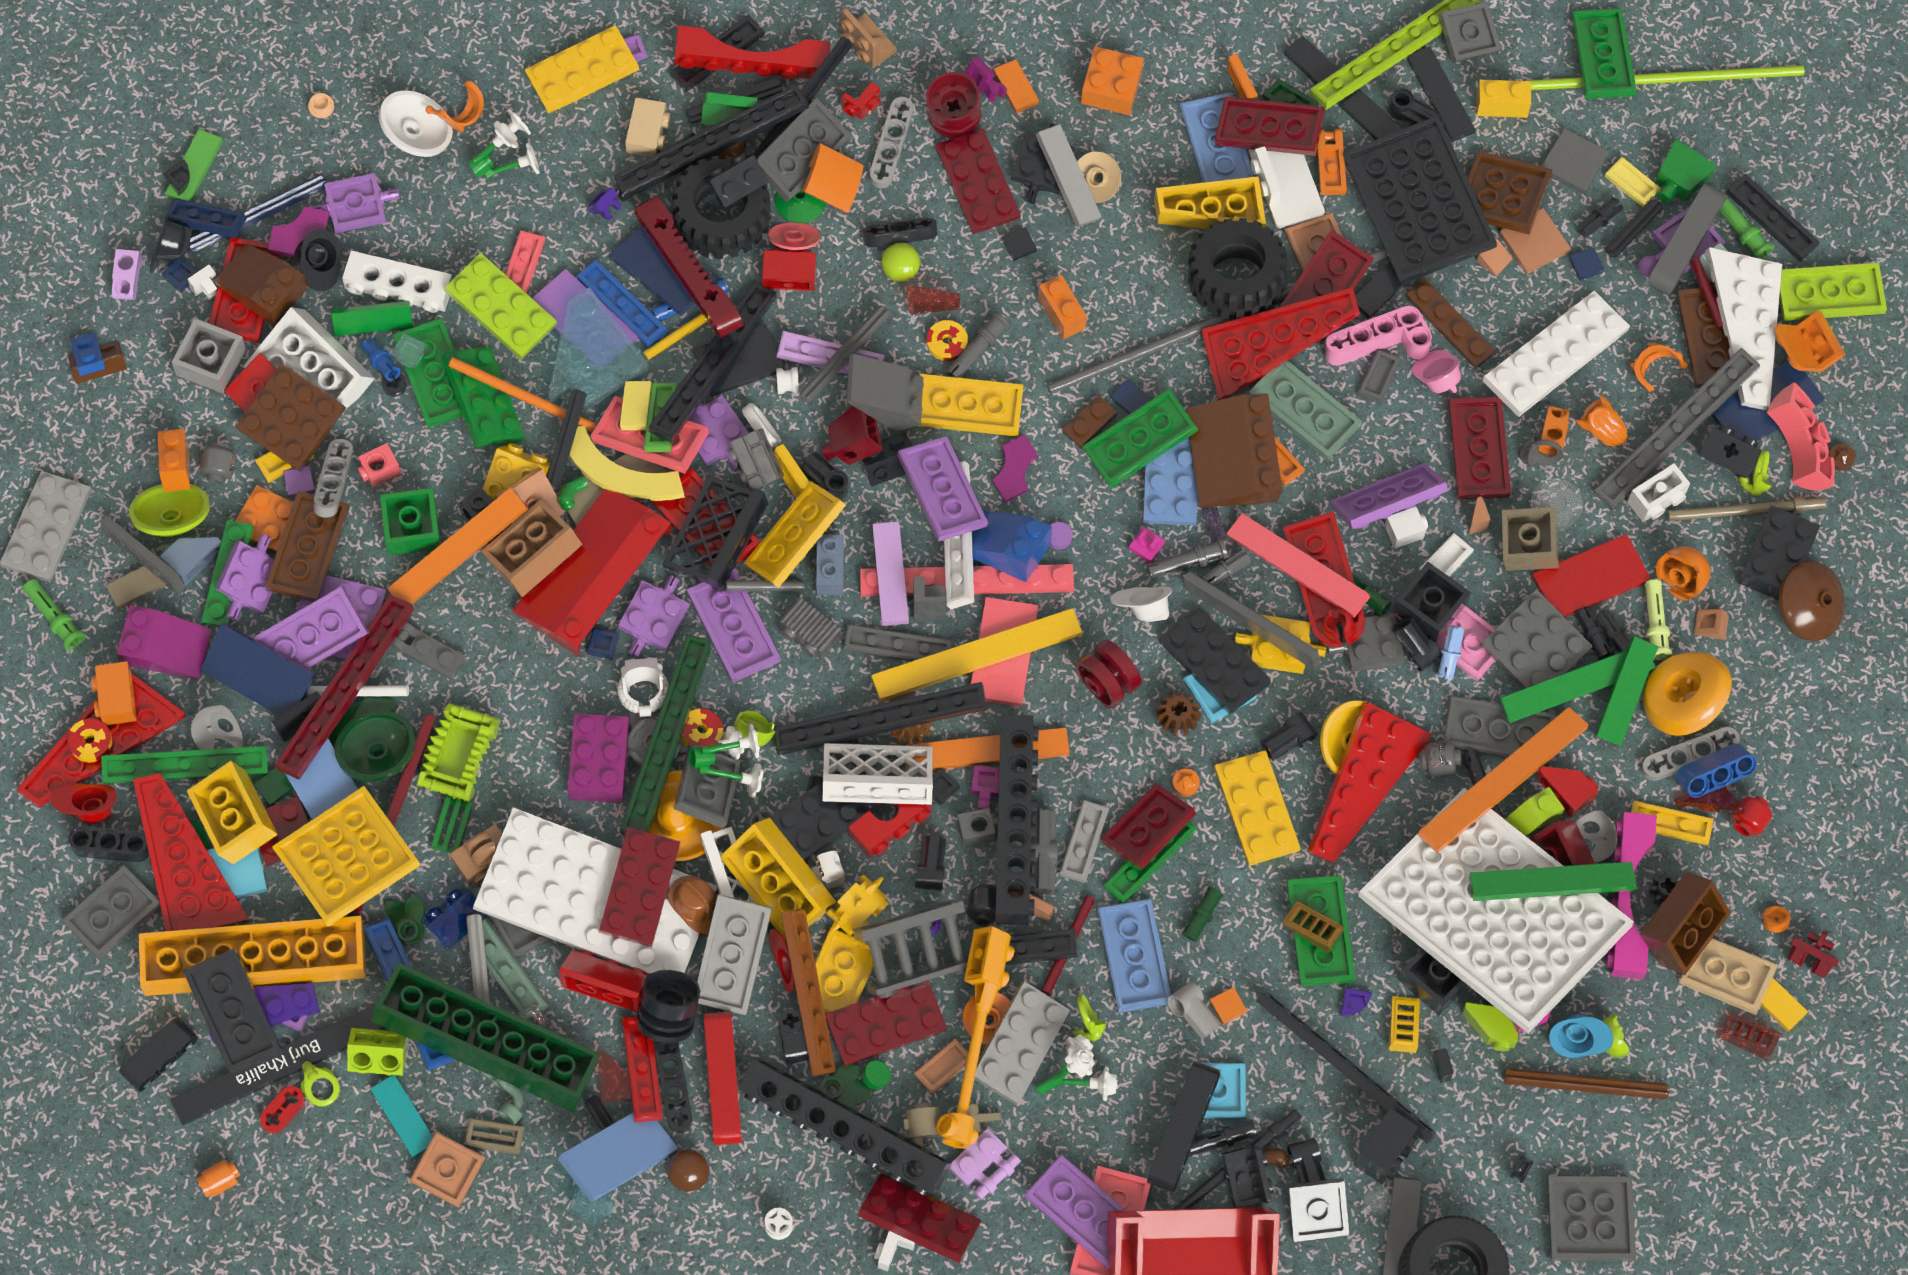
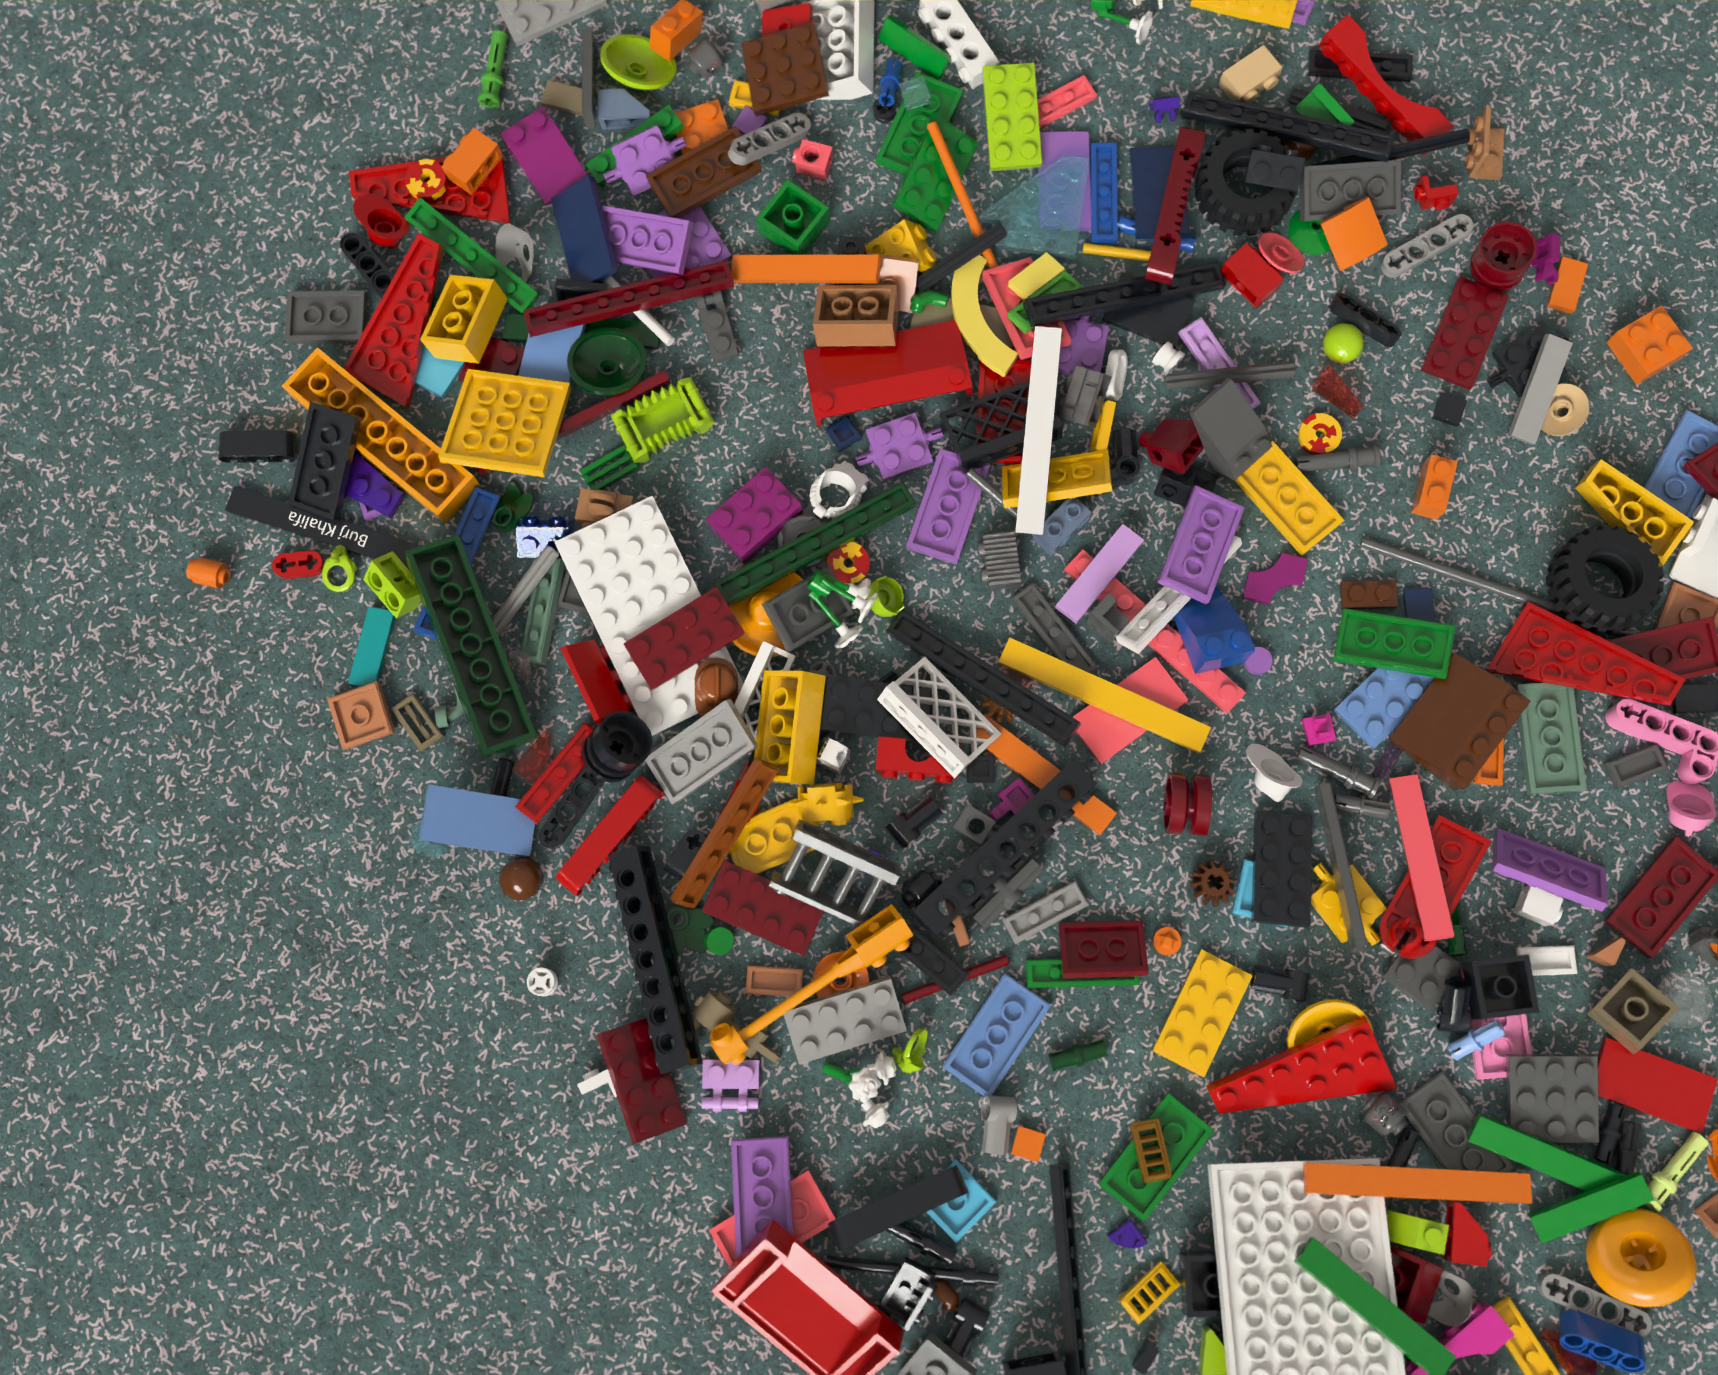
camera: 55 degrees right, 10 degrees up
(751, 509) = (1038, 430): none -> white tile

